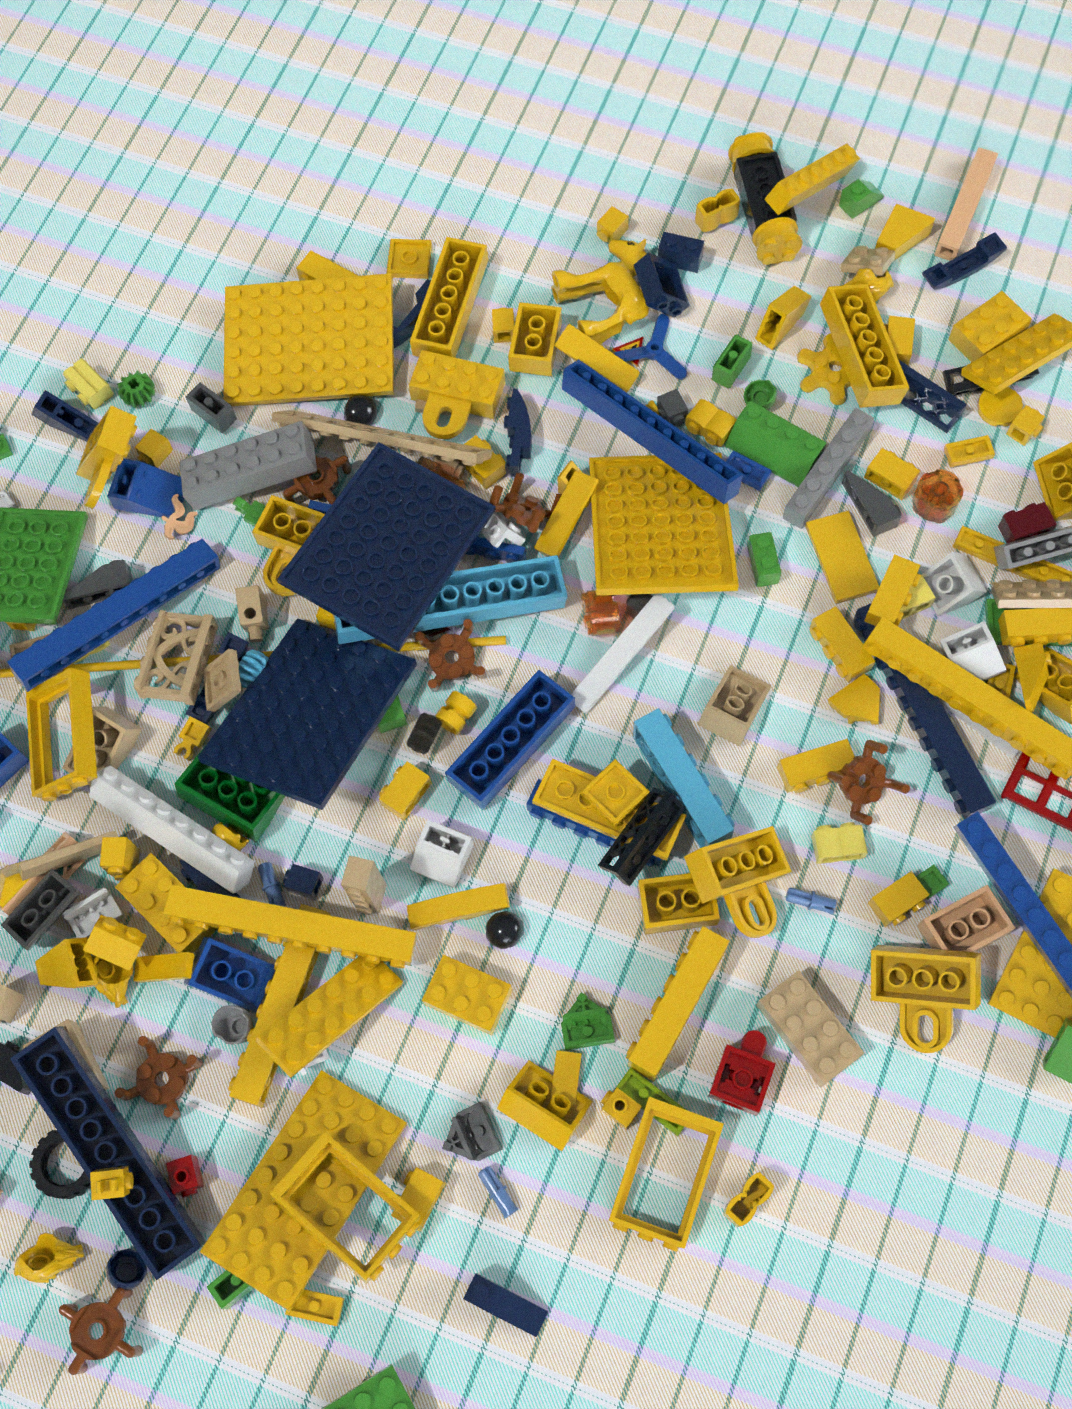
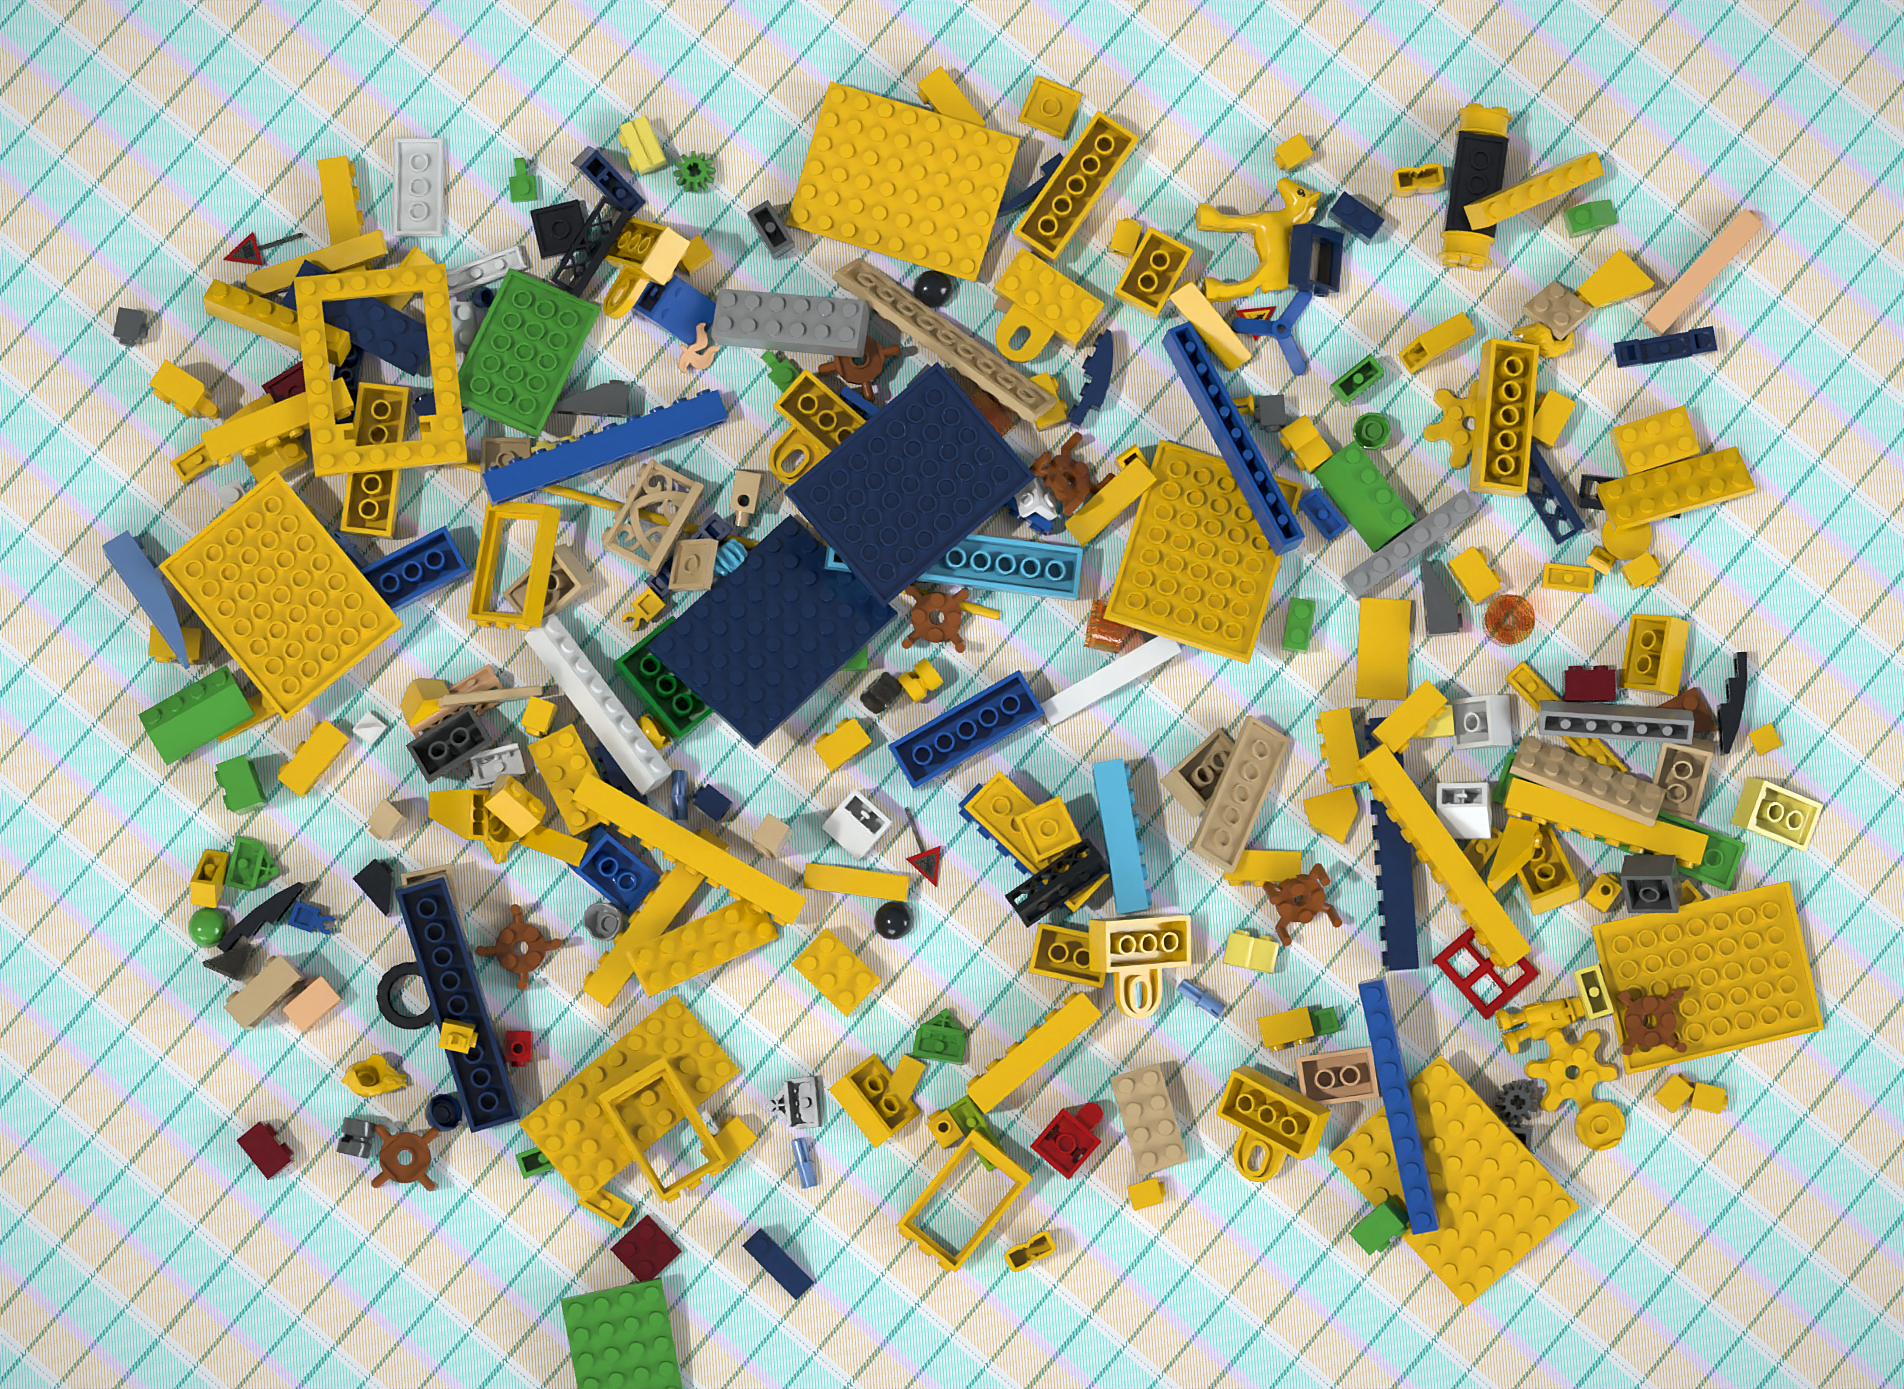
camera: 15 degrees right, 15 degrees up
(37, 468) = (557, 228): none -> black tile
(44, 1328) = (356, 1137): none -> dark grey wheel
(72, 466) = (599, 250): none -> black fence
(369, 1339) = (646, 1249): none -> dark red plate
(516, 867) = (927, 861): none -> piece
(773, 709) = (1239, 794): none -> tan plate
(836, 1102) = (1146, 1193): none -> yellow brick
(989, 428) = (1600, 560): none -> yellow tile

